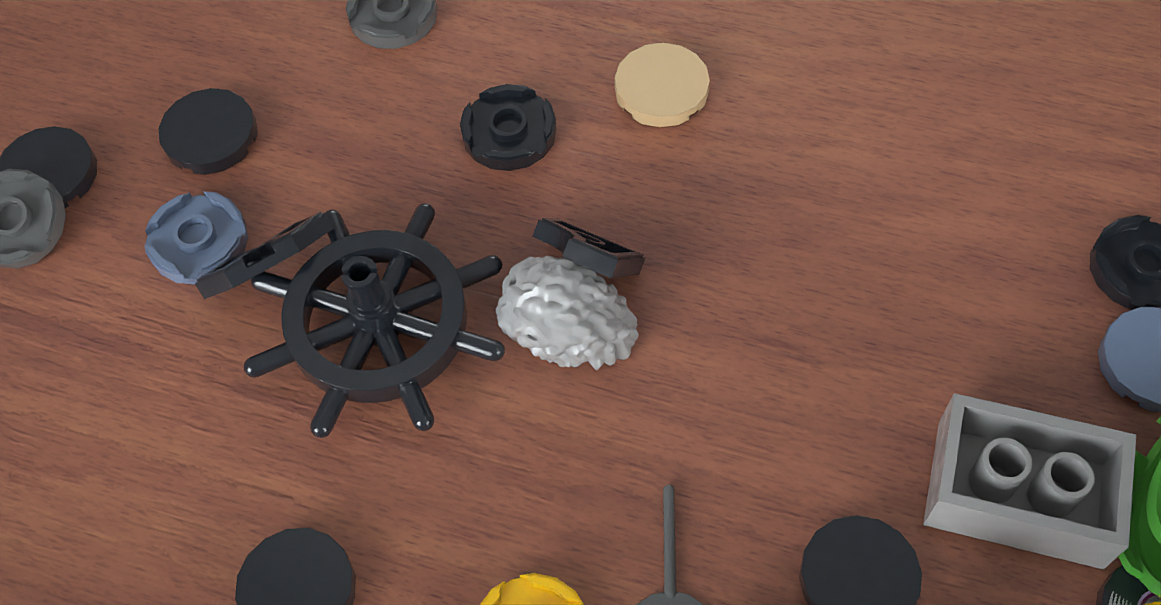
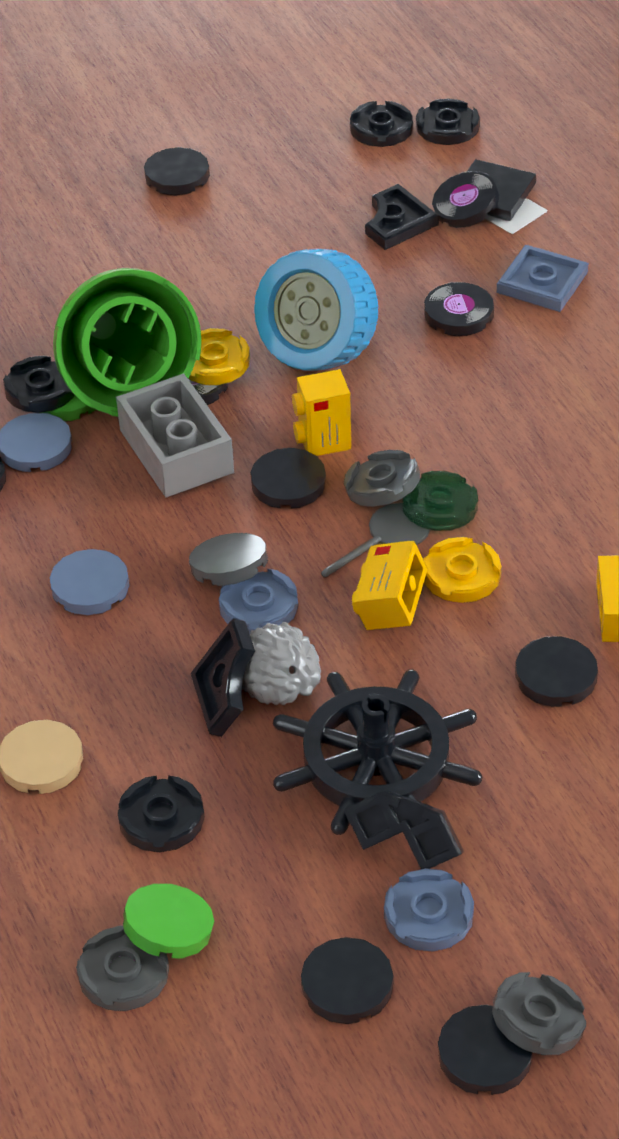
camera: 135 degrees left, 15 degrees down
(388, 47) = (168, 920): none -> bright green tile
(562, 508) = (389, 585): none -> yellow brick
(687, 391) = (260, 600): none -> sand blue tile
(766, 394) = (228, 558): none -> dark grey tile
(861, 260) = (89, 581): none -> sand blue tile

